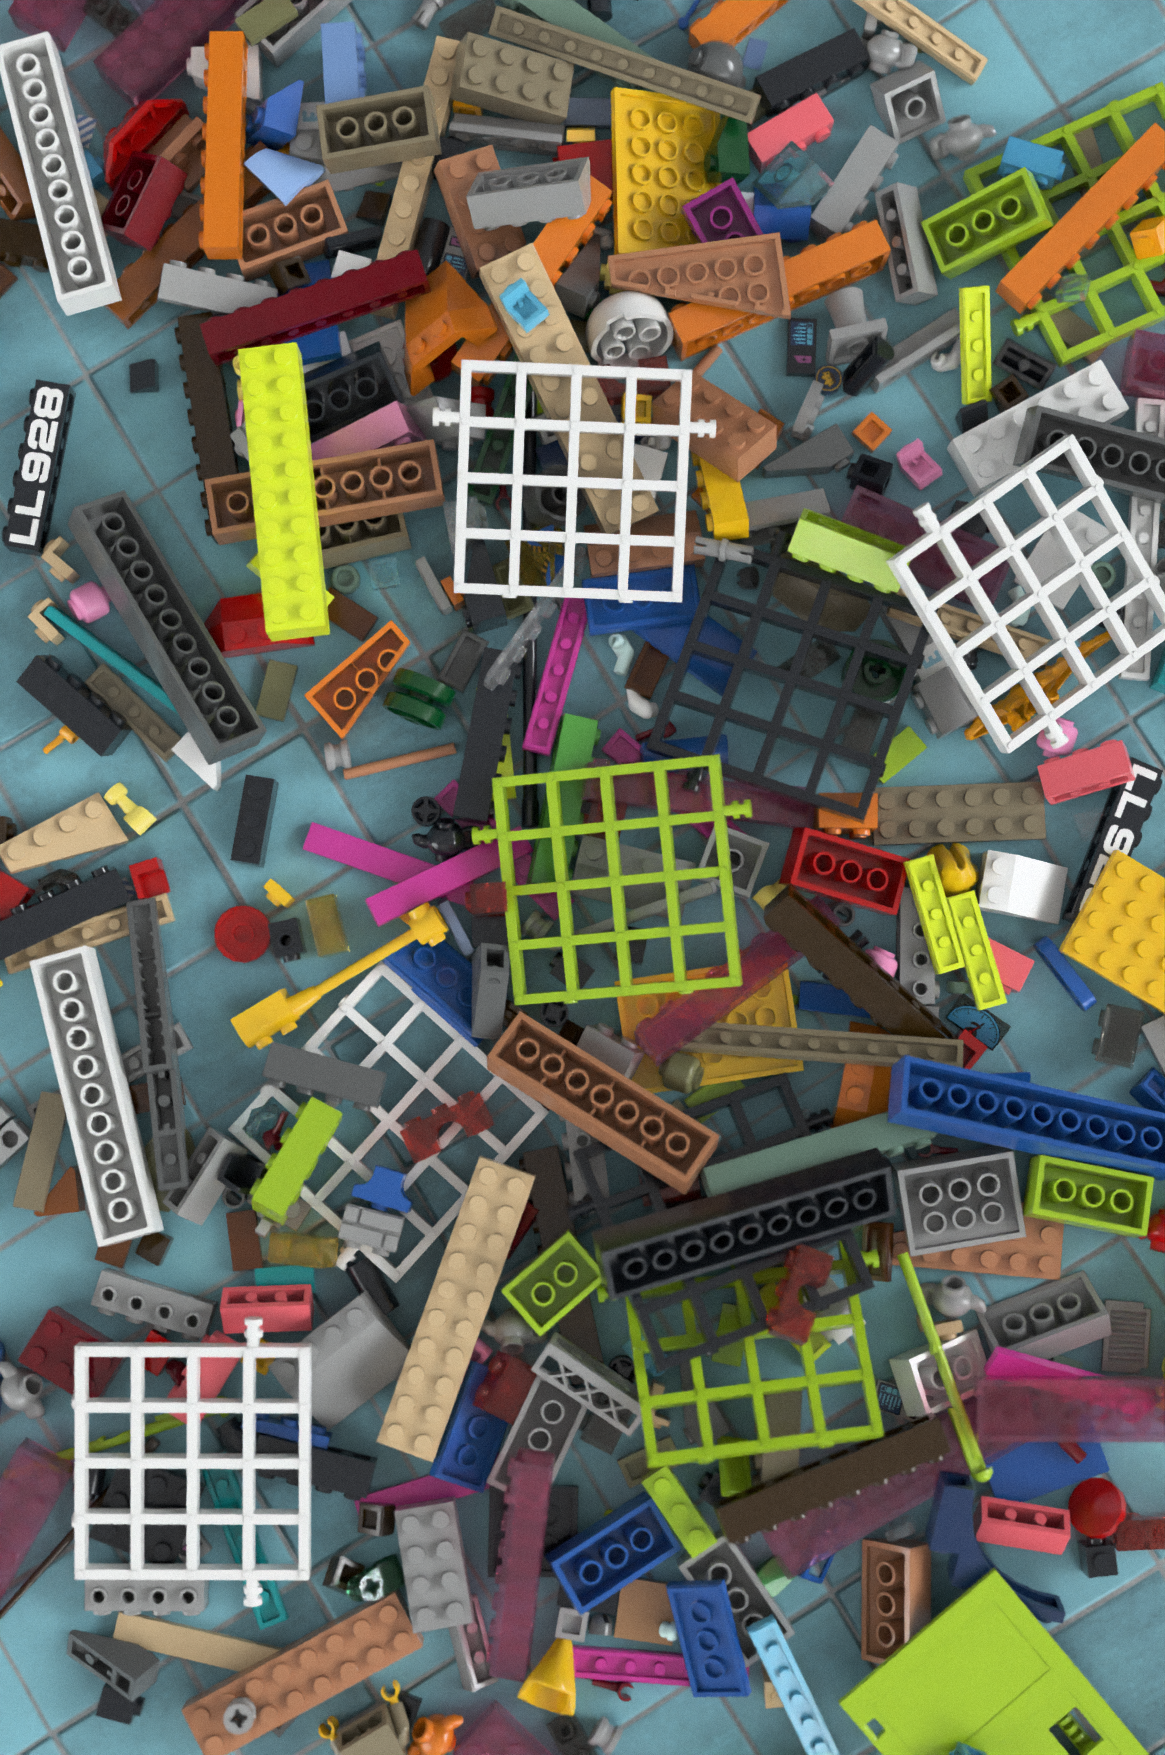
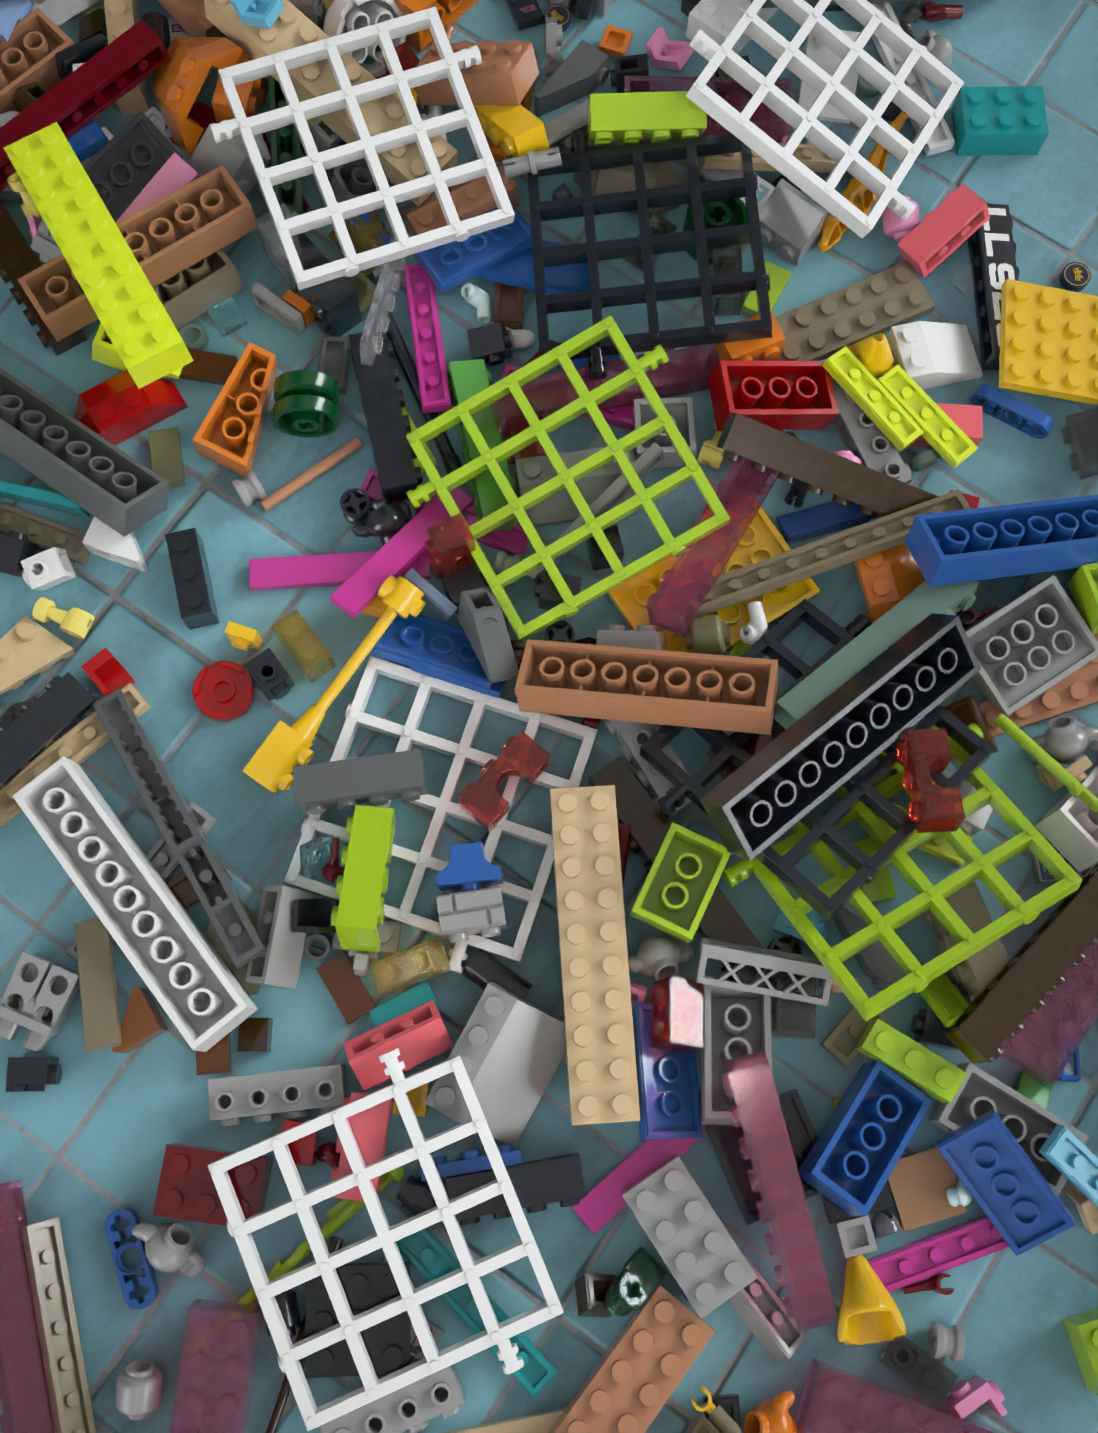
camera: 25 degrees left, 10 degrees down
(132, 759) = (47, 569): none -> white brick
(376, 1518) = (605, 1216): dark brown slope -> none
(612, 706) = (491, 343): none -> black brick
(730, 1079) = (756, 626): none -> white arm
(981, 1023) = (943, 478): slope -> none

